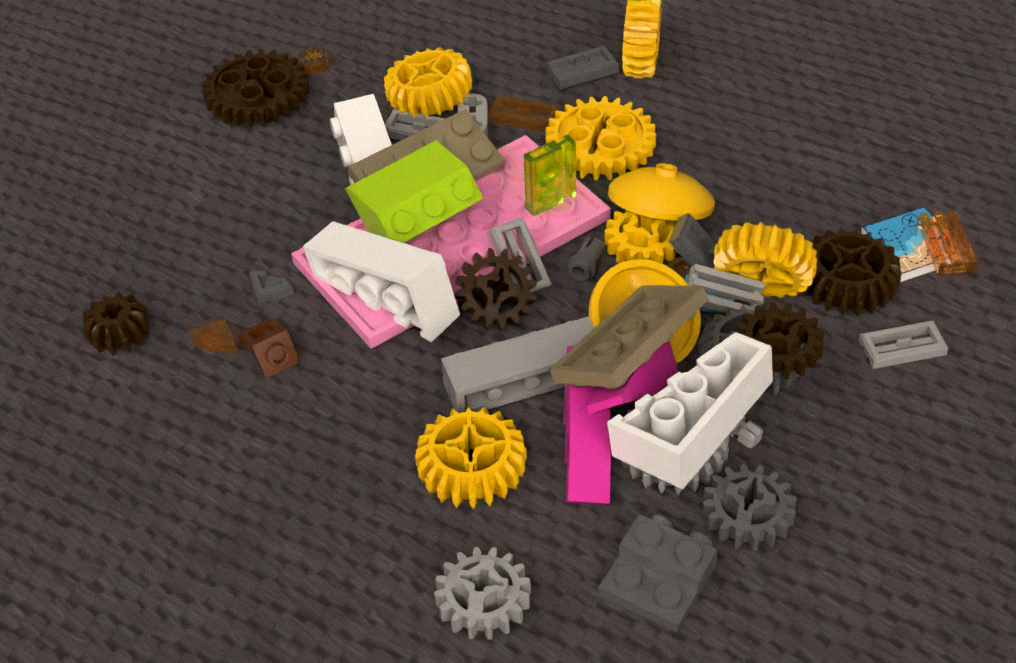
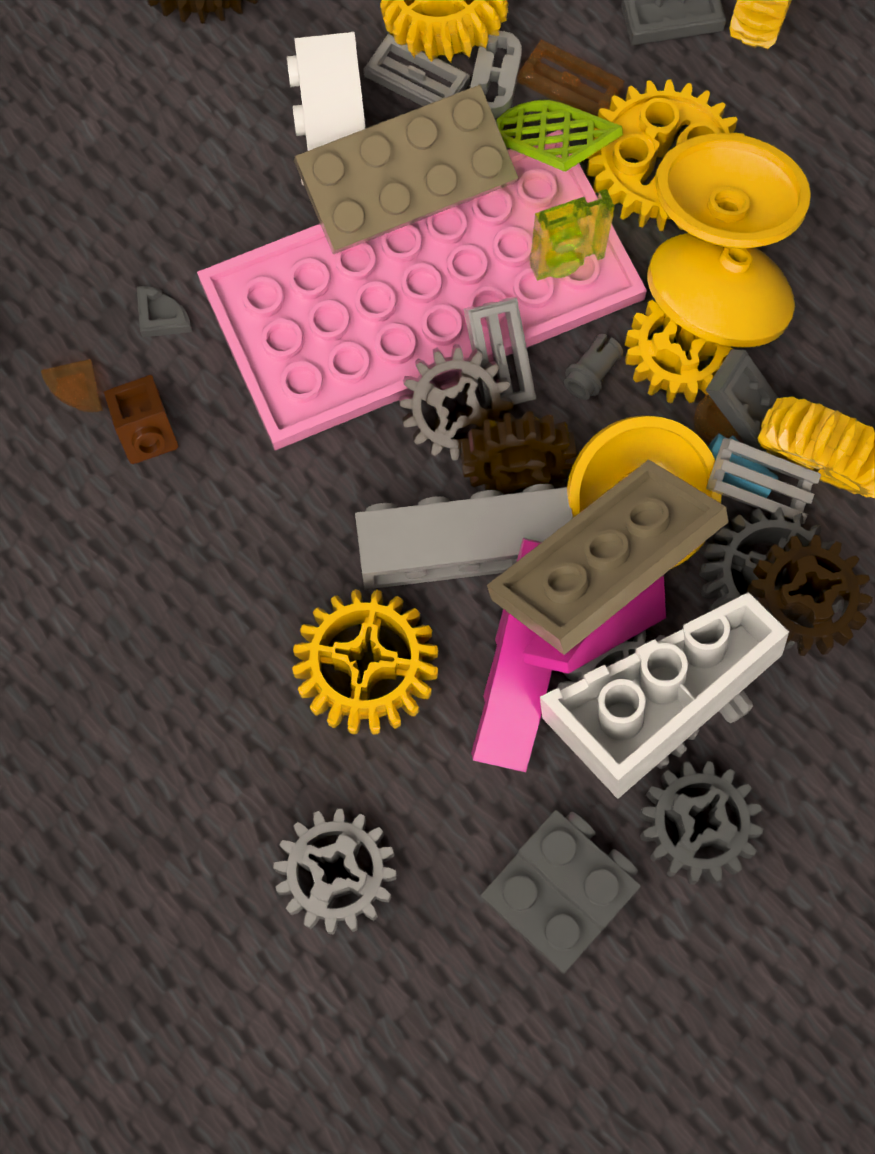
camera: 10 degrees right, 25 degrees up
(386, 275) = (308, 355): white wedge -> none
(414, 193) = (374, 230): lime slope -> none
(526, 134) = (608, 132): none -> lime window
(548, 301) = (518, 453): none -> dark brown gear
(652, 137) = (733, 190): none -> yellow dish

